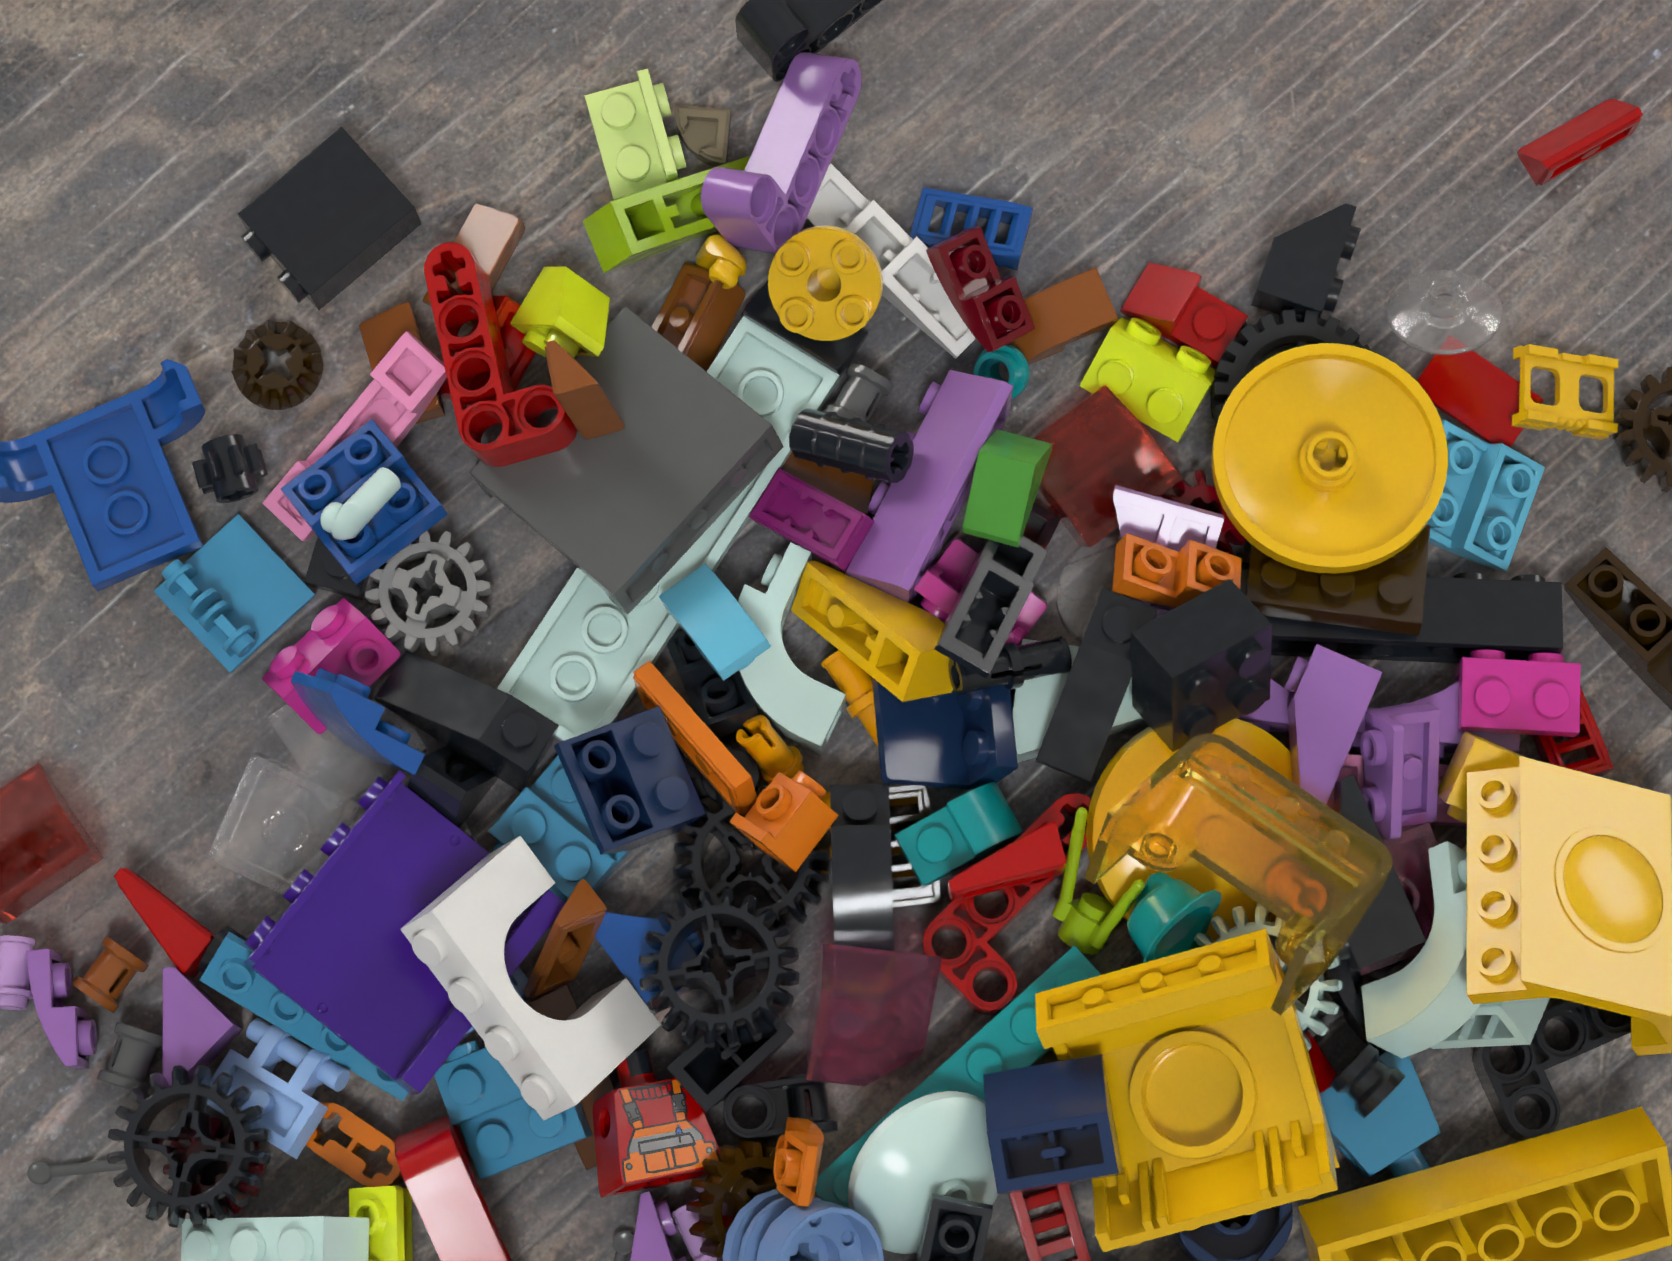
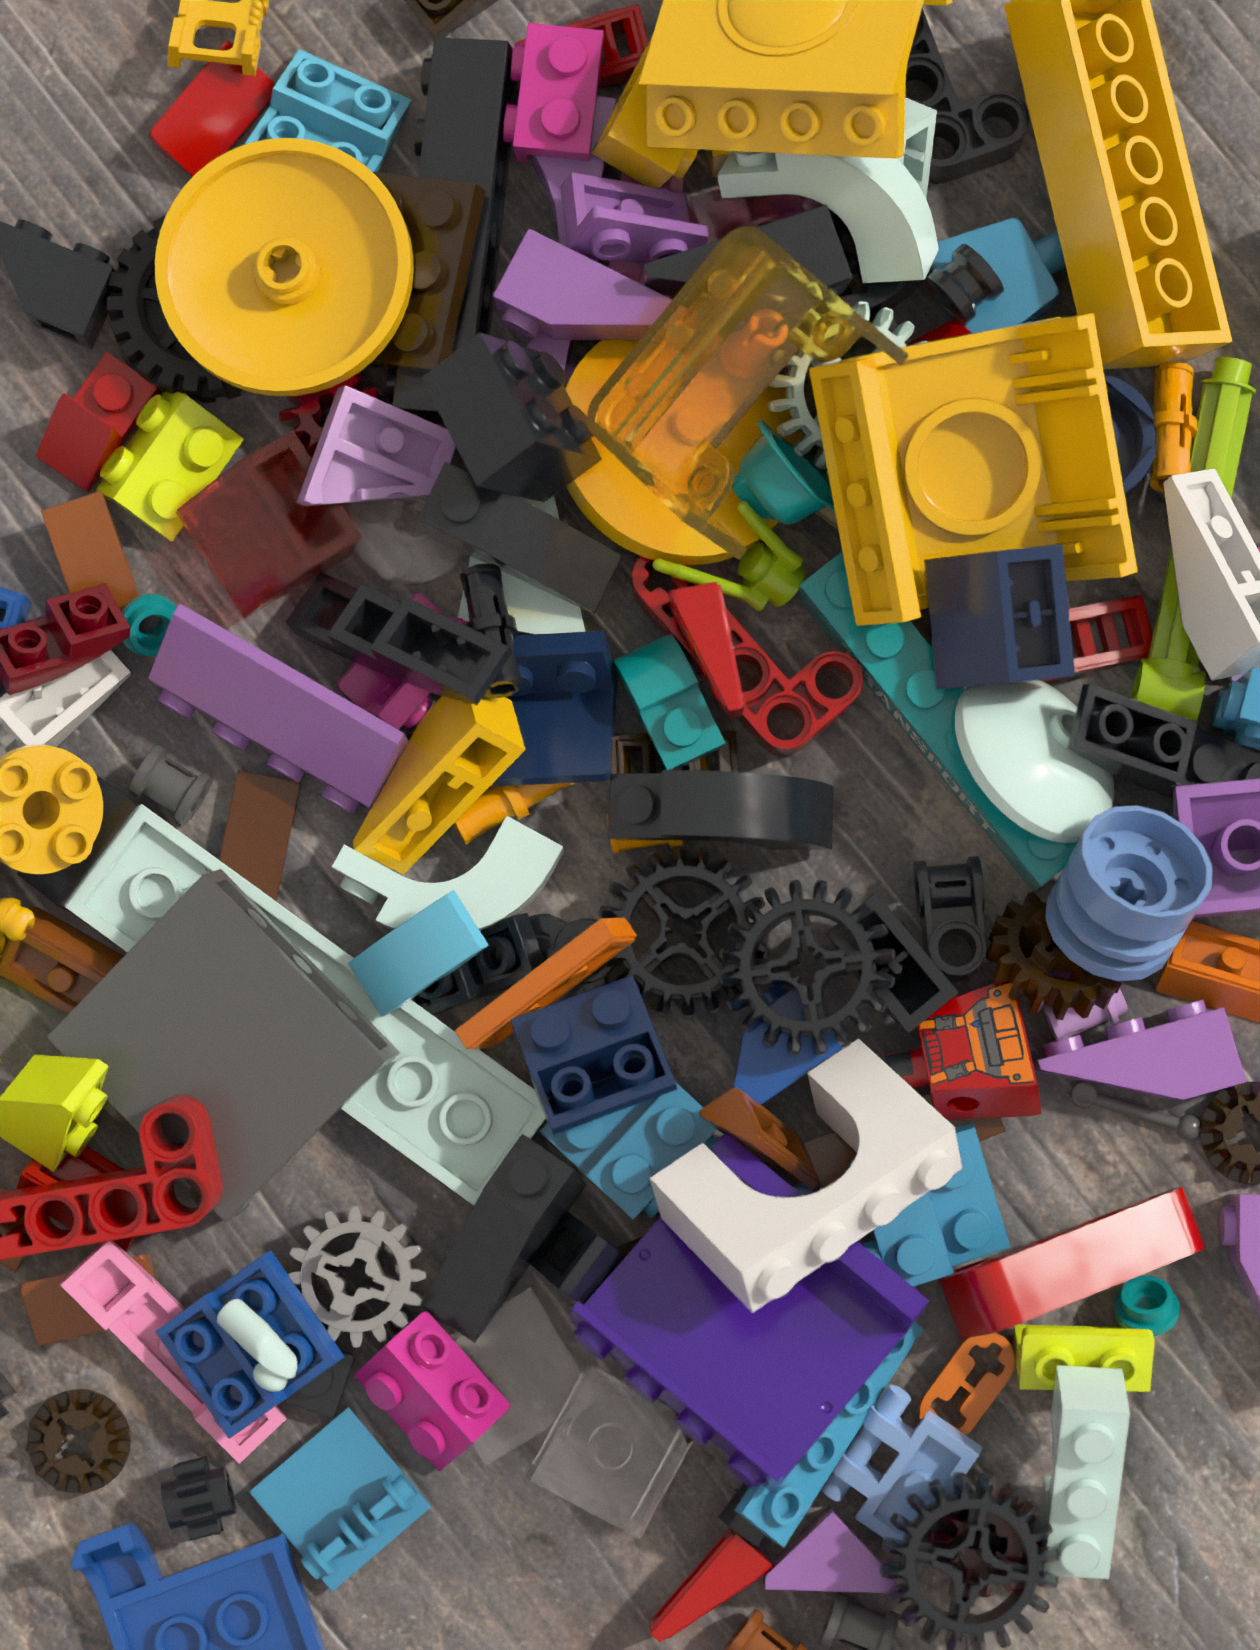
camera: 90 degrees left, 5 degrees up
(355, 720) = (500, 1364): blue slope -> none
(580, 395) = (155, 1084): dark orange slope -> none
(769, 749) = (572, 897): light orange pin -> none
(787, 819) = (647, 883): orange brick -> none
(798, 1160) = (1021, 890): orange slope -> none
(811, 519) = (305, 843): magenta plate -> none
(851, 445) = (227, 791): black axle -> none
(868, 1013) = (859, 814): clear pink slope -> none
(1005, 487) = (290, 621): bright green slope -> none
(1169, 576) = (407, 444): orange slope -> none
(1444, 312) = (119, 138): clear dish -> none

